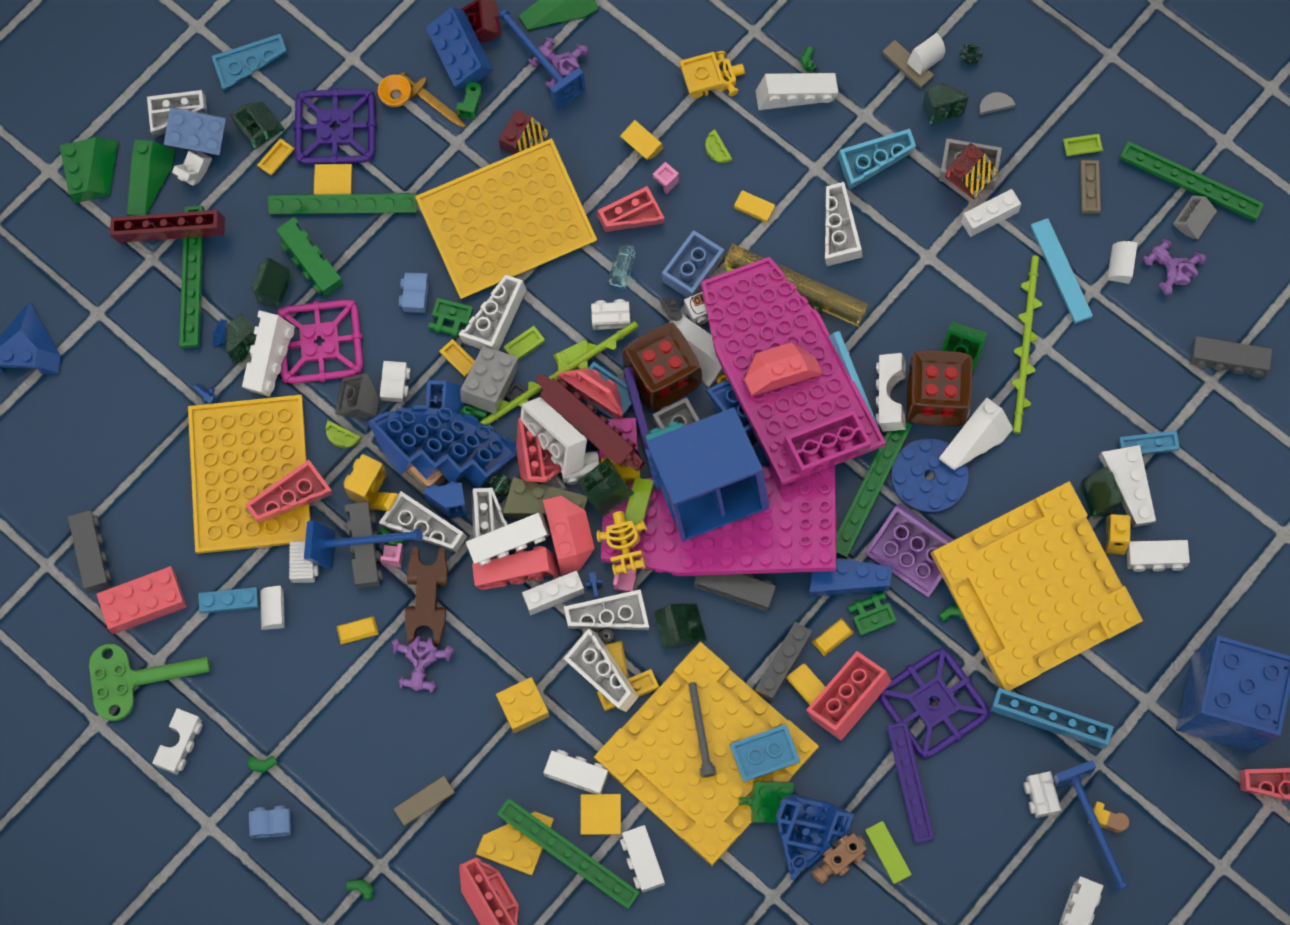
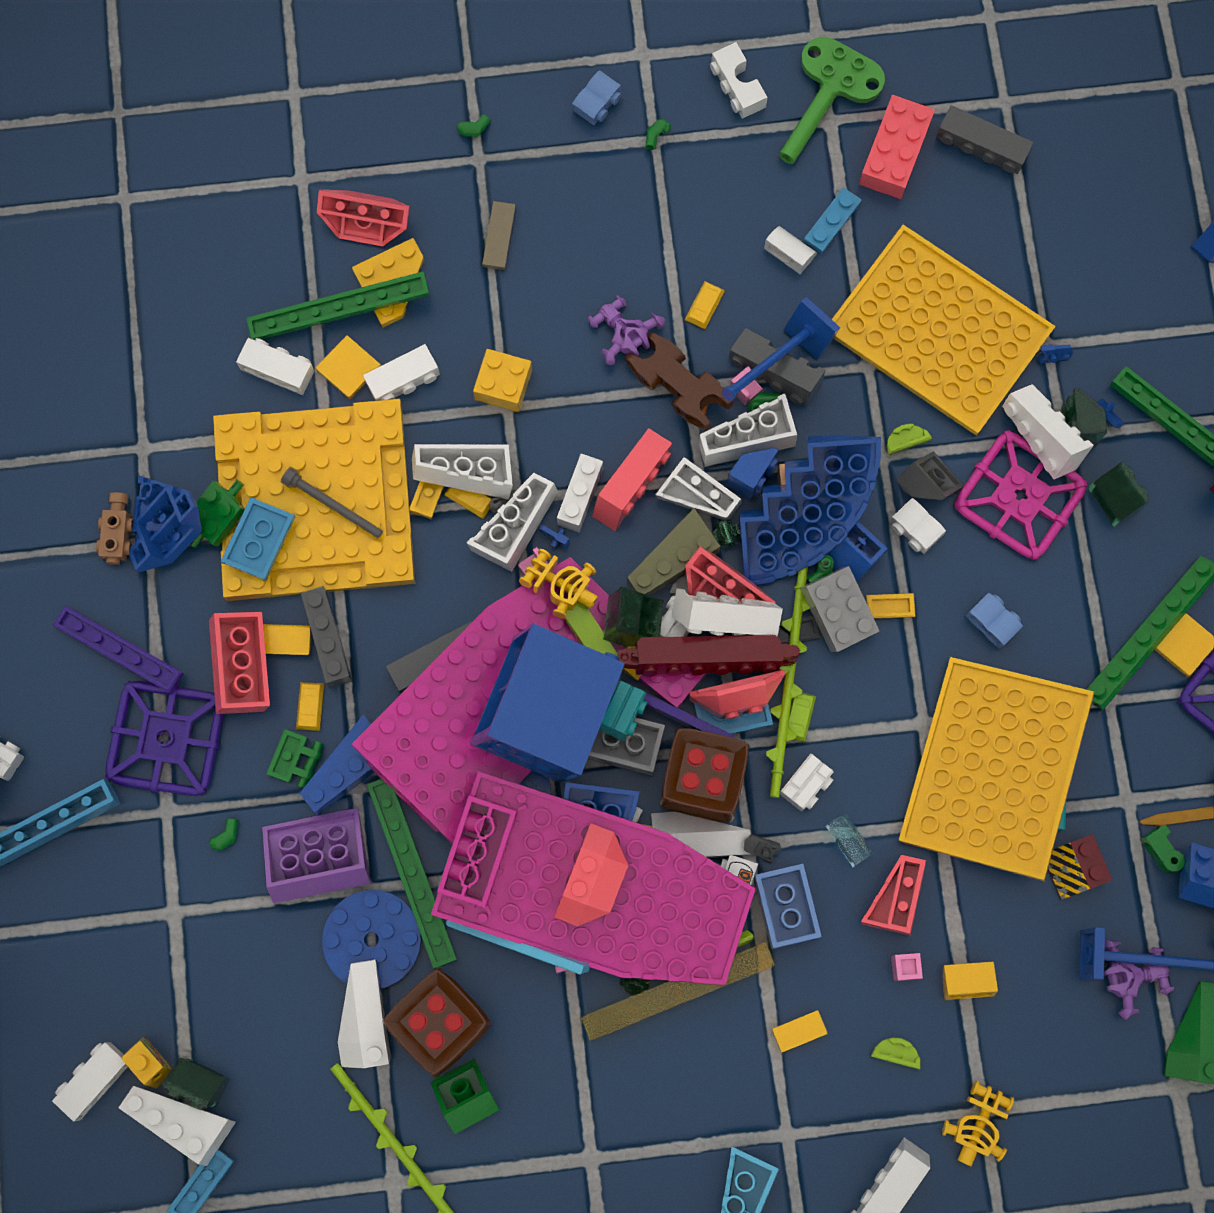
camera: 130 degrees right, 5 degrees up
(291, 492) = (881, 347): coral wedge -> none
(301, 569) = (805, 290): white brick -> none
(308, 258) = (1117, 550): green wedge -> none
(364, 479) = (837, 412): yellow brick -> none
(383, 501) = (804, 417): yellow tile -> none
(452, 312) = (943, 638): green plate -> none
(495, 315) = (901, 671): white wedge -> none
(507, 538) = (659, 486): white wedge -> none
(524, 343) = (850, 678): lime tile -> none
(569, 533) = (622, 548): coral wedge -> none
(680, 625) = (445, 577): clear green slope -> none
(701, 73) = (993, 1110): yellow tile -> none
(841, 234) = (694, 1091): white wedge -> none
(888, 852) = (81, 576): lime tile -> none
(891, 371) = (504, 998): white arch -> none
(1035, 587) = (170, 930): yellow plate -> none

